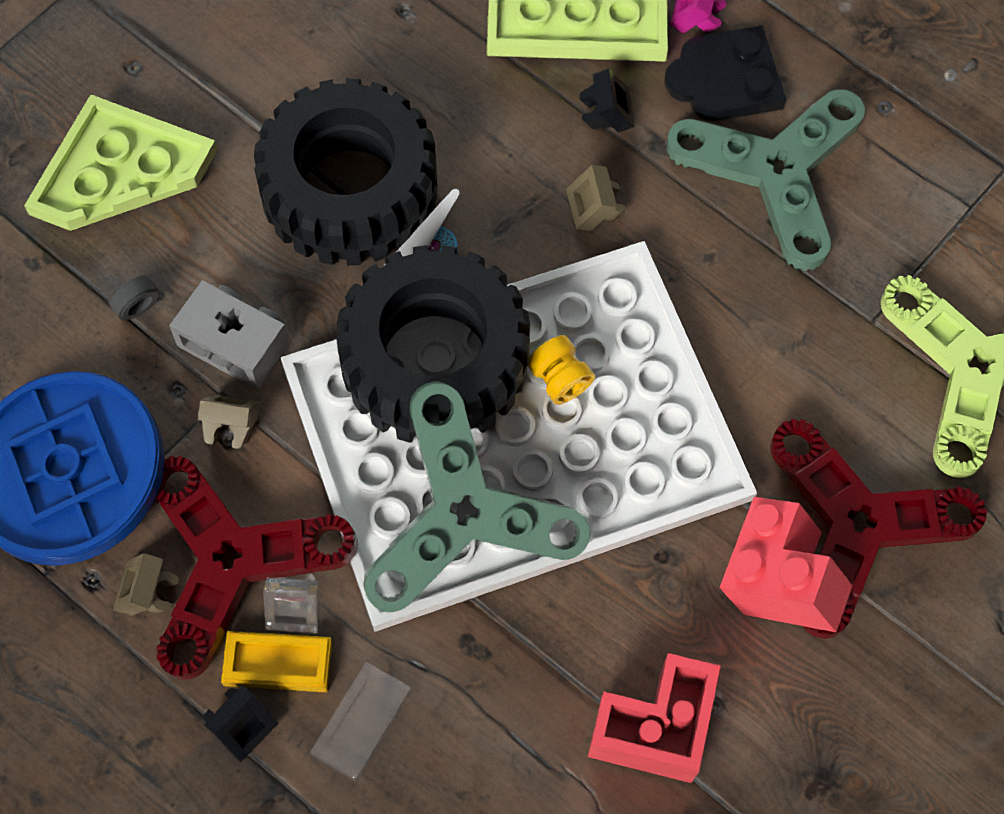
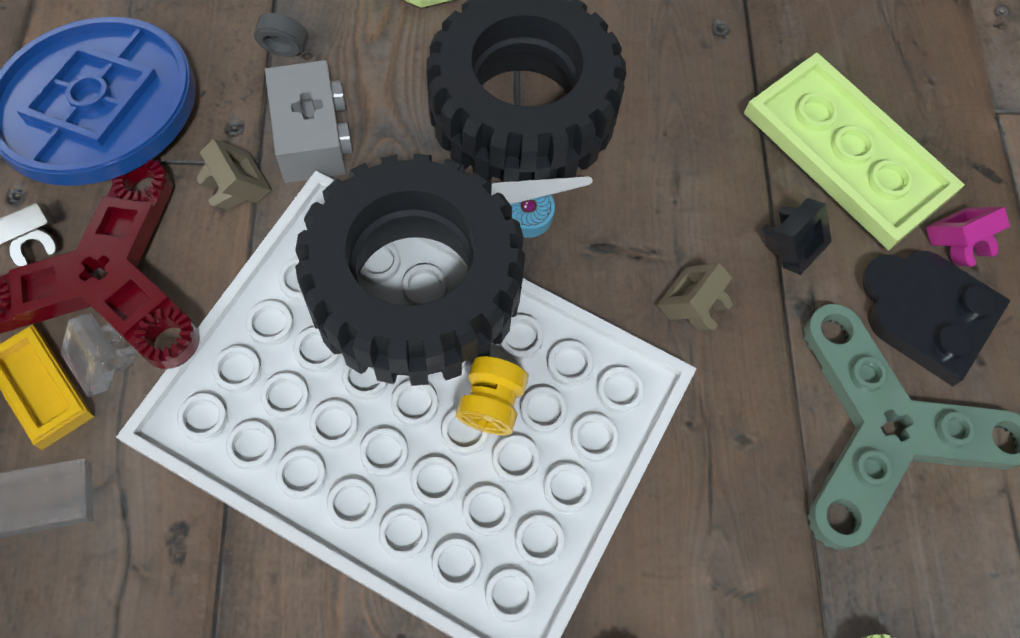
camera: 45 degrees right, 0 degrees up
(435, 533) = (289, 454): sand green piece -> none

